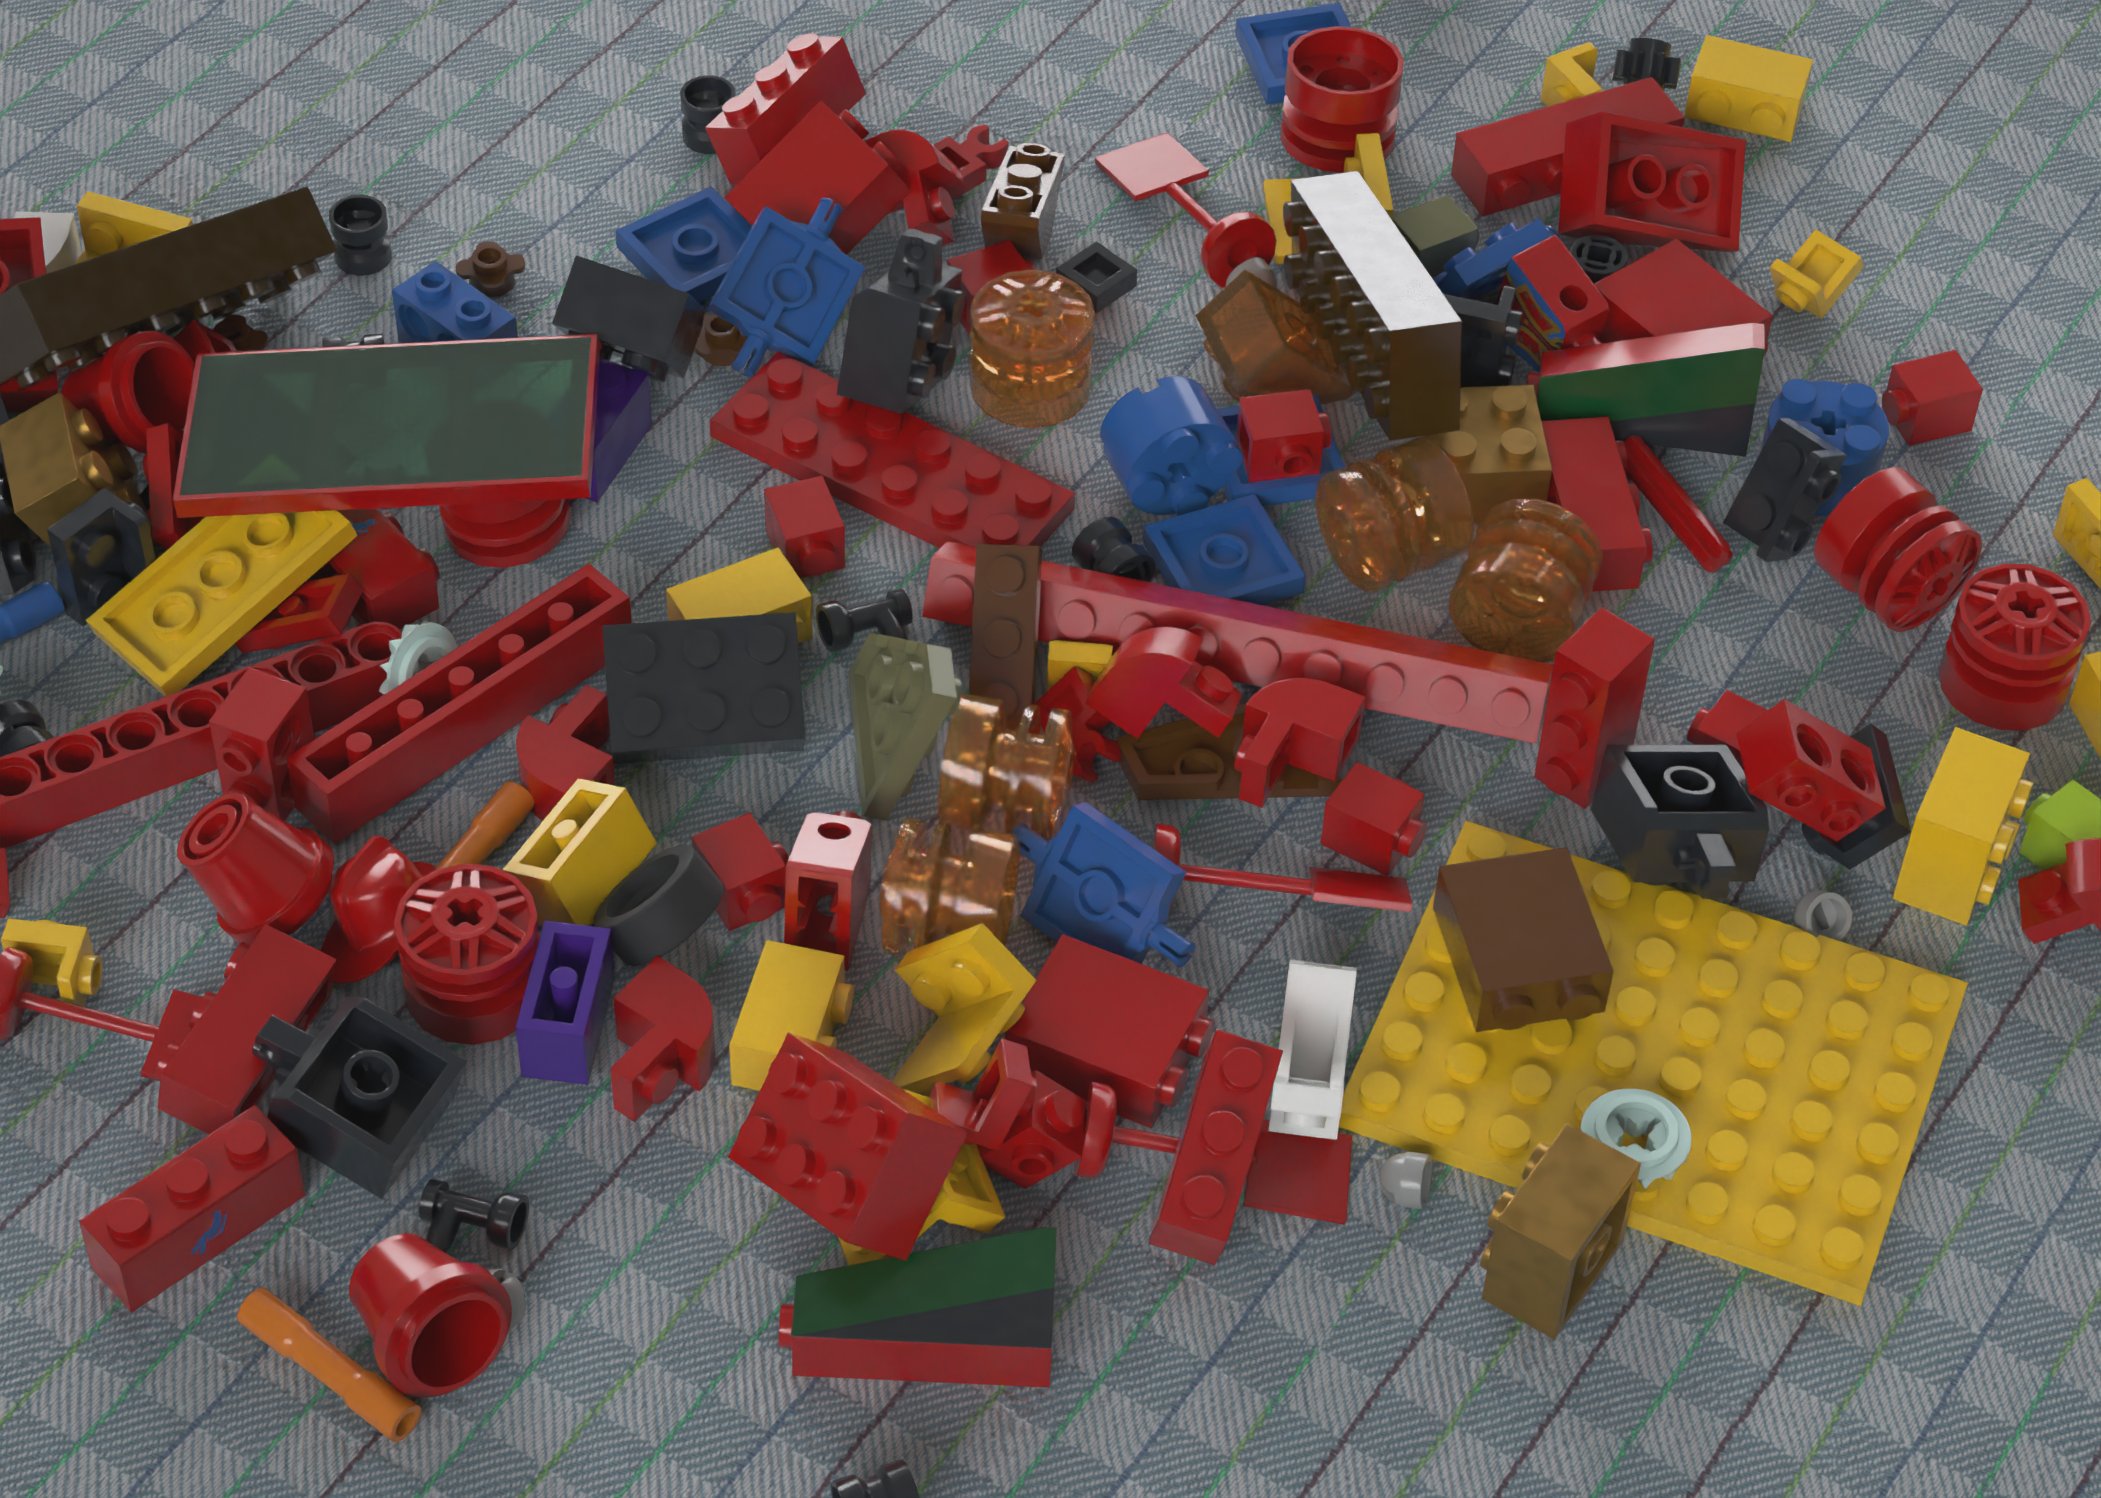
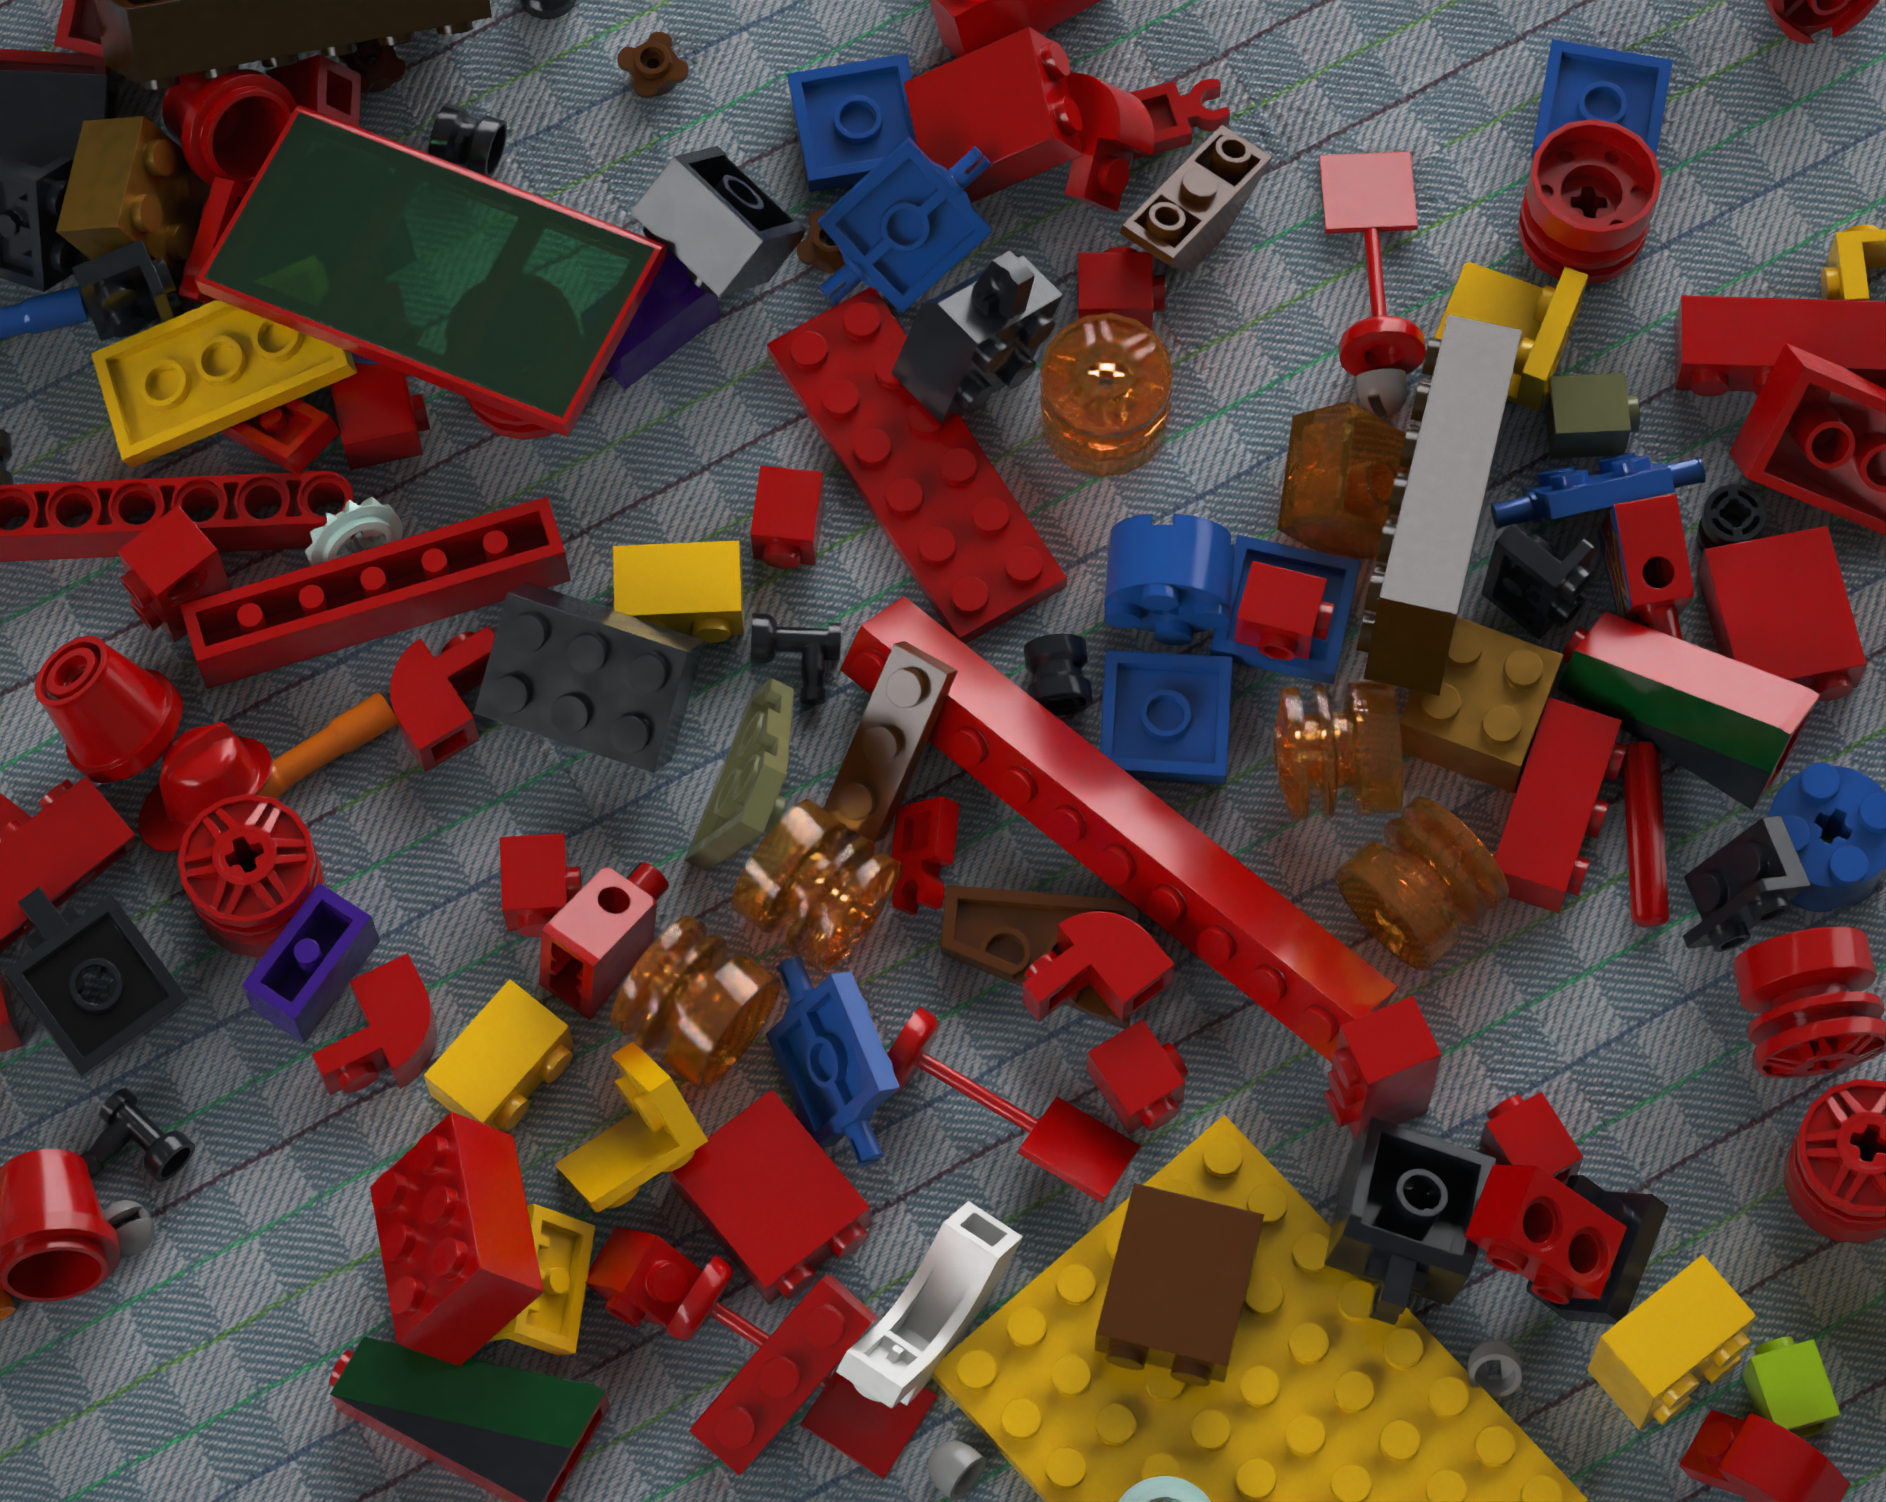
camera: 30 degrees right, 20 degrees up
(446, 308) = (579, 137): blue brick -> none
(582, 852) = (397, 811): yellow brick -> none
(659, 904) = (436, 898): black tyre -> none
(999, 1097) = (593, 1253): red bracket -> none
(1067, 654) = (952, 784): yellow tile -> none
(1100, 274) = (1229, 319): black plate -> none
(1161, 669) = (1006, 847): red brick -> none

